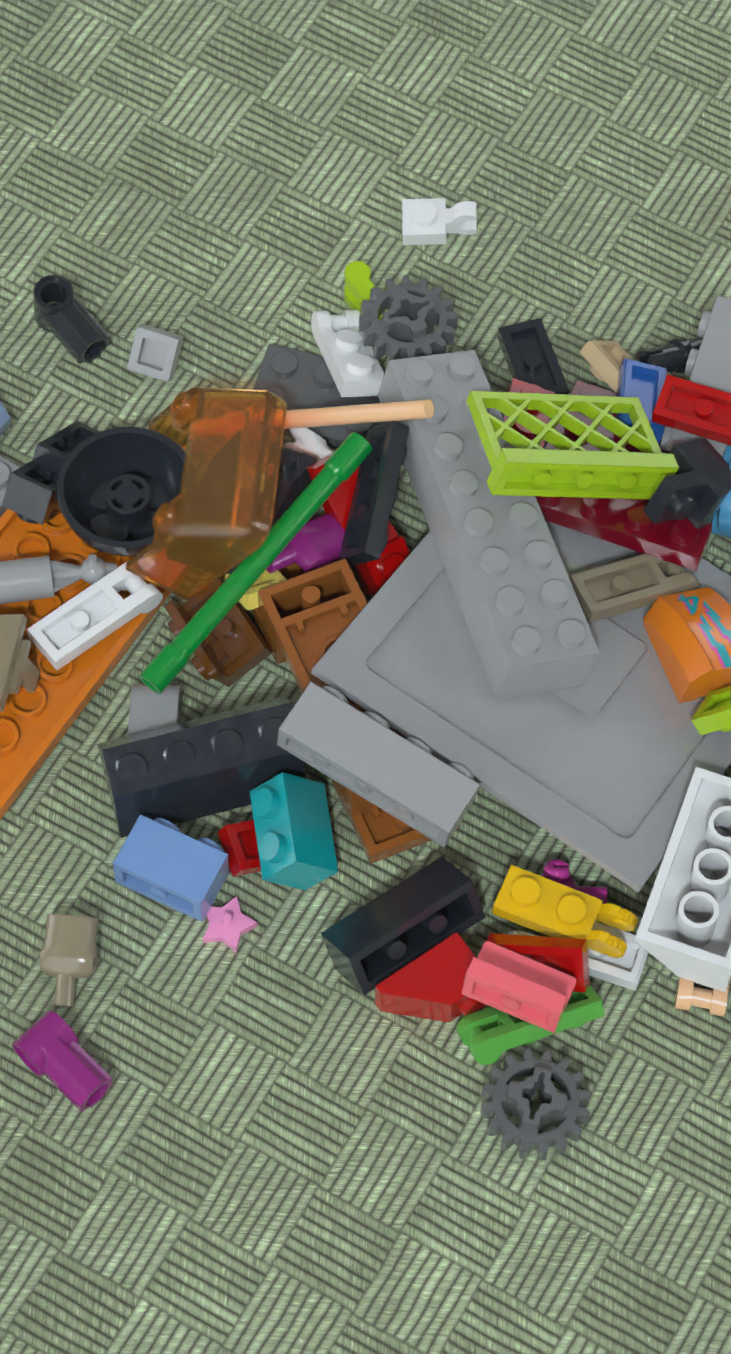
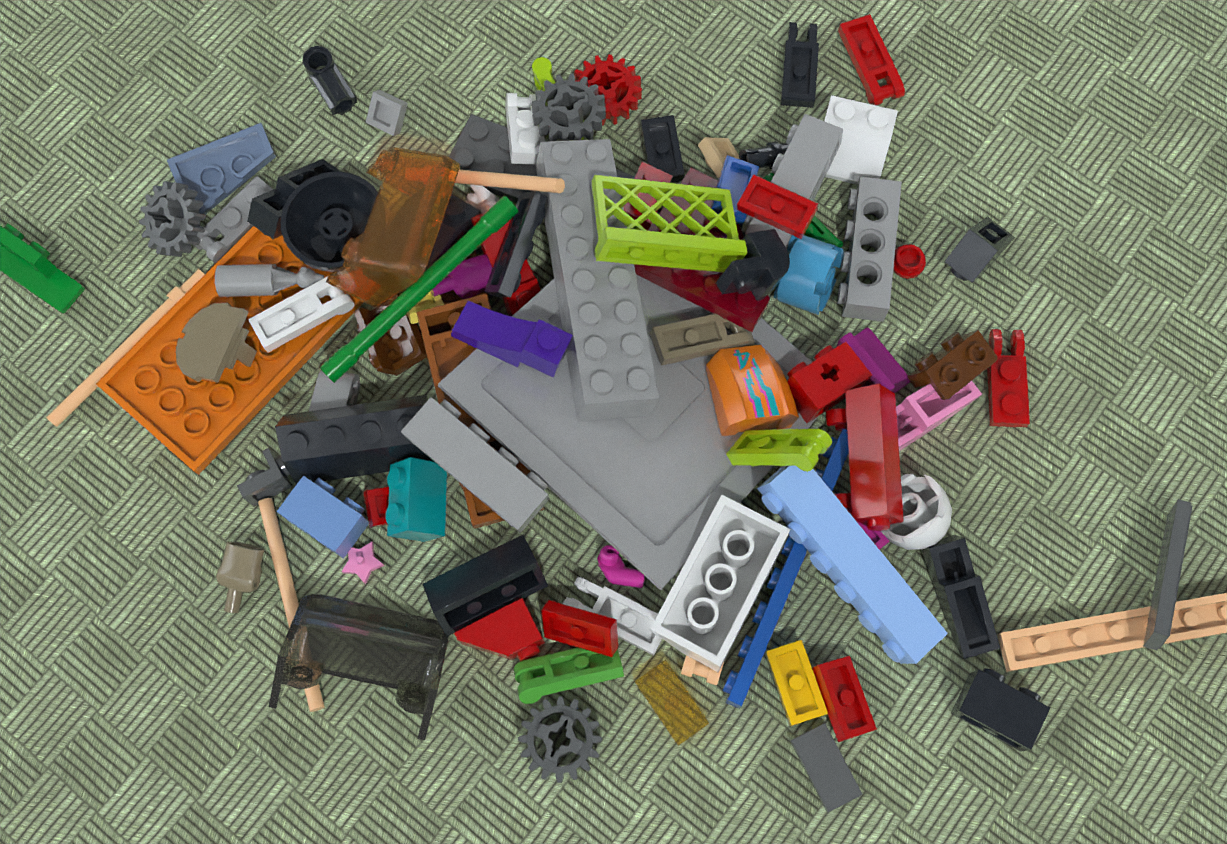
camera: 15 degrees right, 10 degrees up
(55, 1051) = (215, 649): magenta piece -> none
(84, 838) = (266, 483): none -> dark grey bracket
(182, 1064) = (285, 582): none -> light nougat bar
(268, 1025) = (363, 646): none -> clear smoke windscreen
(399, 605) = (512, 338): none -> dark purple slope
(429, 220) = (606, 29): white plate -> none
(458, 282) = (616, 83): none -> red gear
(518, 986) = (560, 648): coral panel -> none
(561, 911) = (603, 589): yellow hinge -> none
(669, 1045) = (671, 703): none -> clear yellow plate
(694, 243) = (800, 68): none -> black hinge

